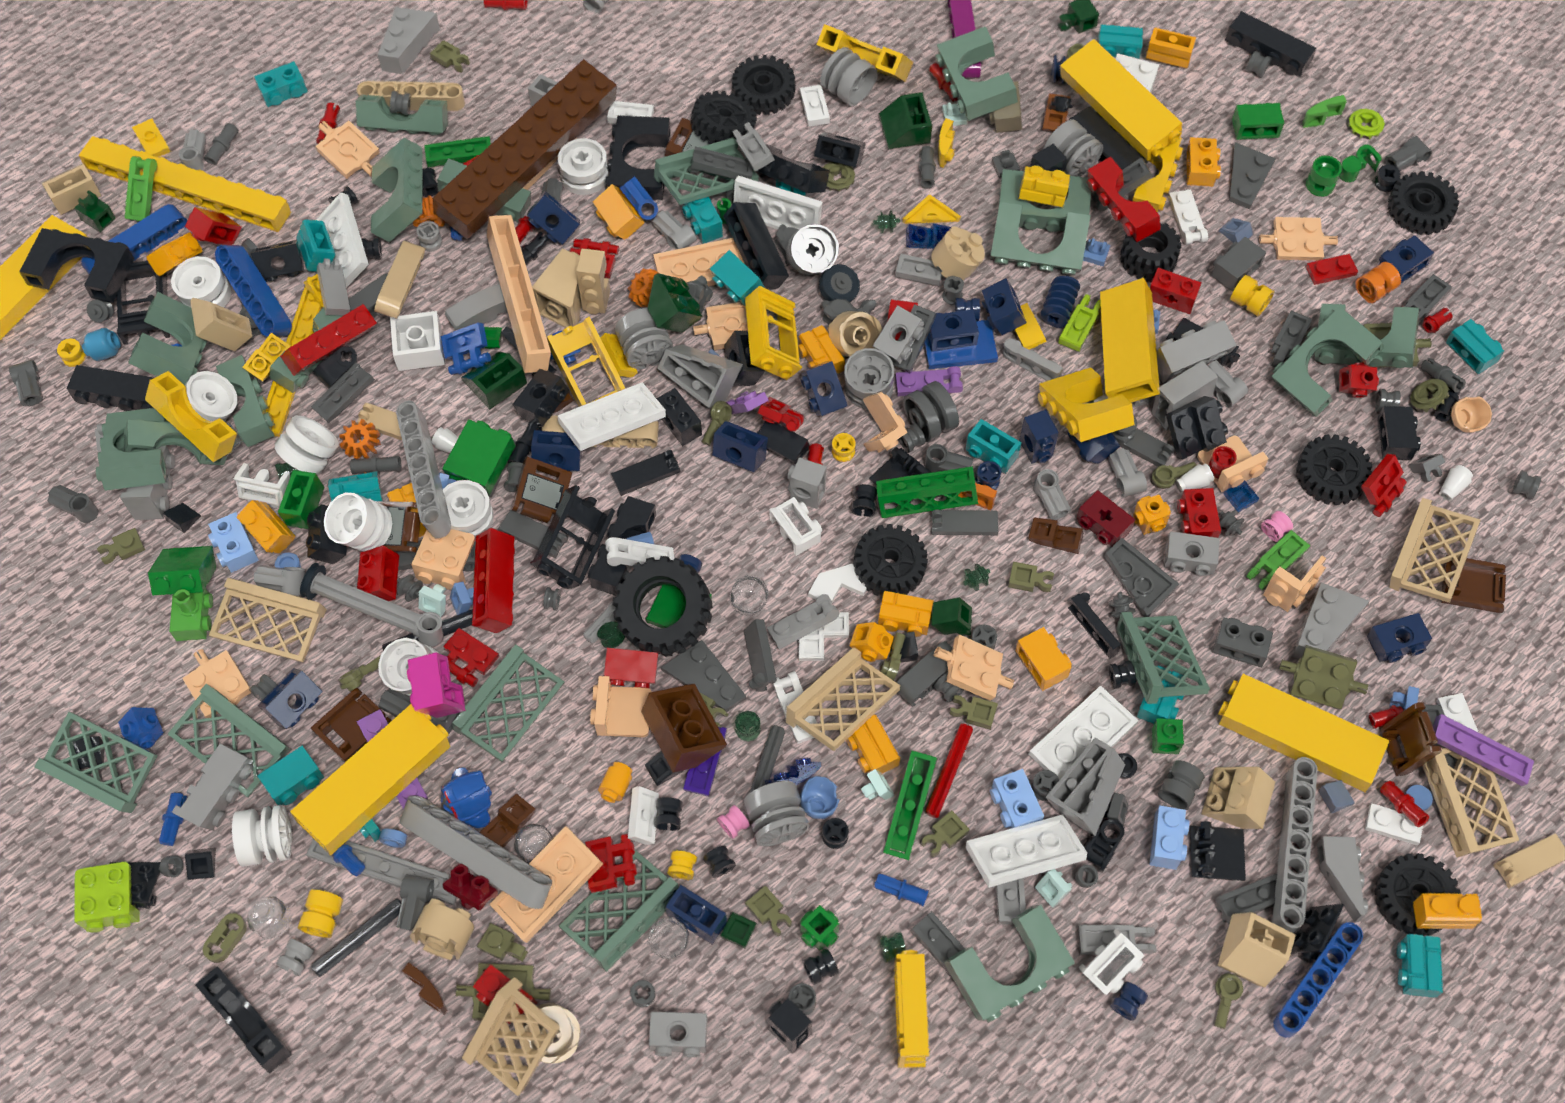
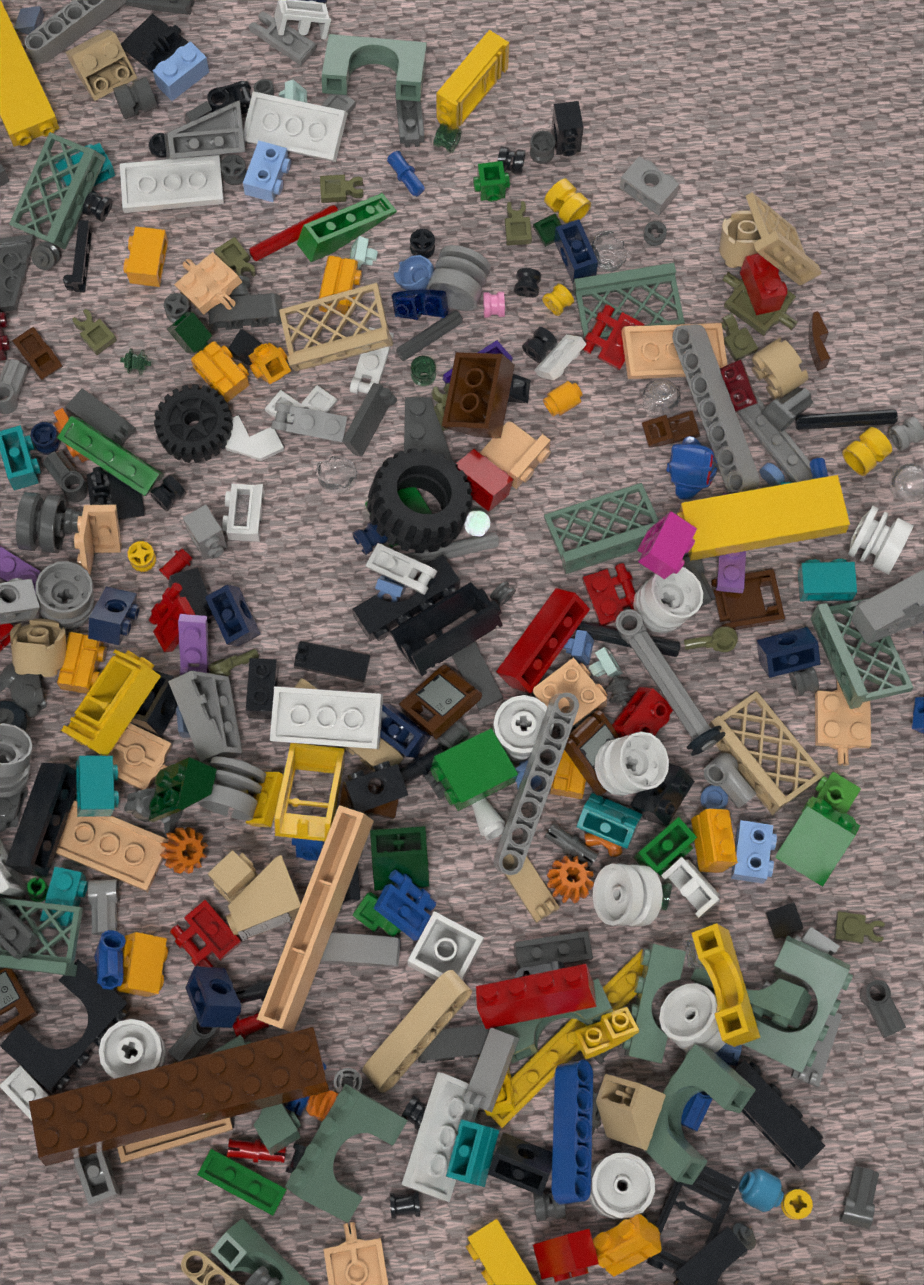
camera: 145 degrees left, 10 degrees up
(739, 959) = (566, 201): none -> yellow wheel
(891, 667) = (271, 334): olive plate -> none
(1167, 736) = (111, 136): green brick -> none

